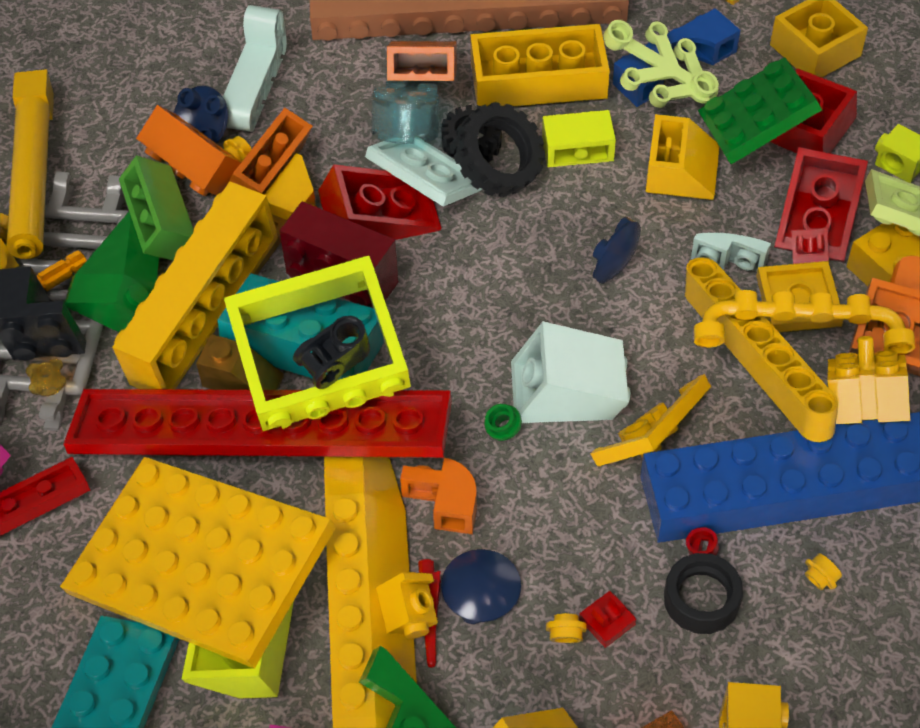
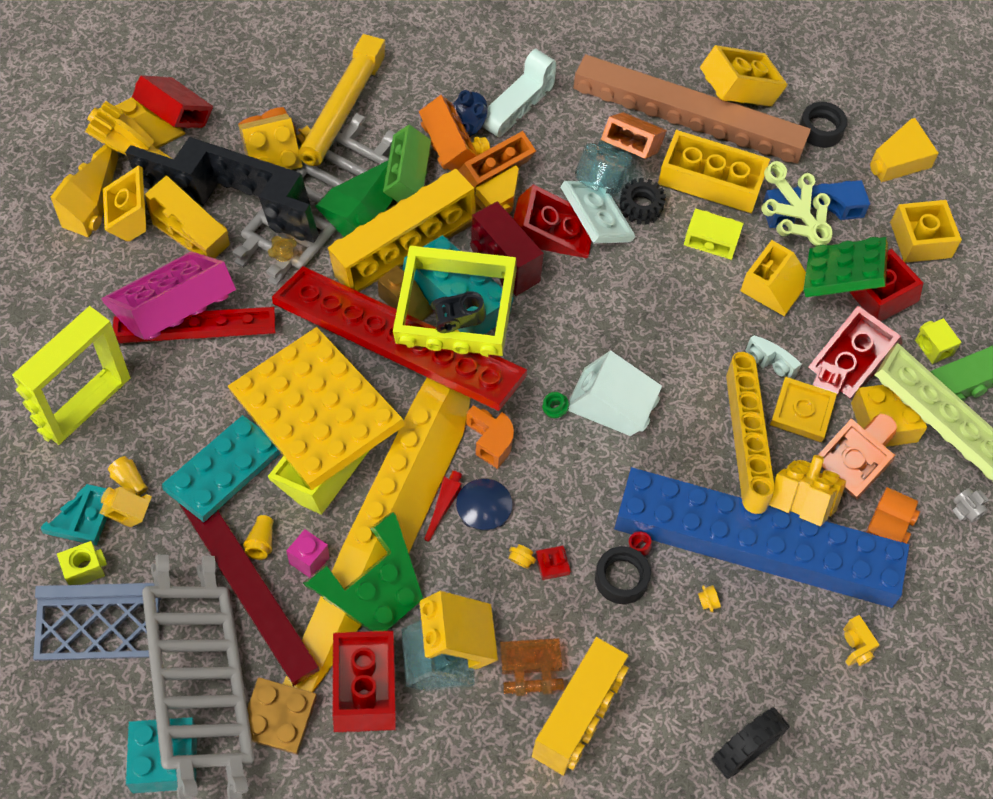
camera: 20 degrees right, 5 degrees up
(61, 270) = (324, 182): light orange axle -> none
(407, 604) = (428, 494): yellow brick -> none
(522, 133) = (675, 214): black tyre -> none
(617, 251) = (693, 324): dark blue dish -> none
(654, 426) = (653, 452): yellow wing -> none
(819, 309) = (802, 424): yellow bar -> none

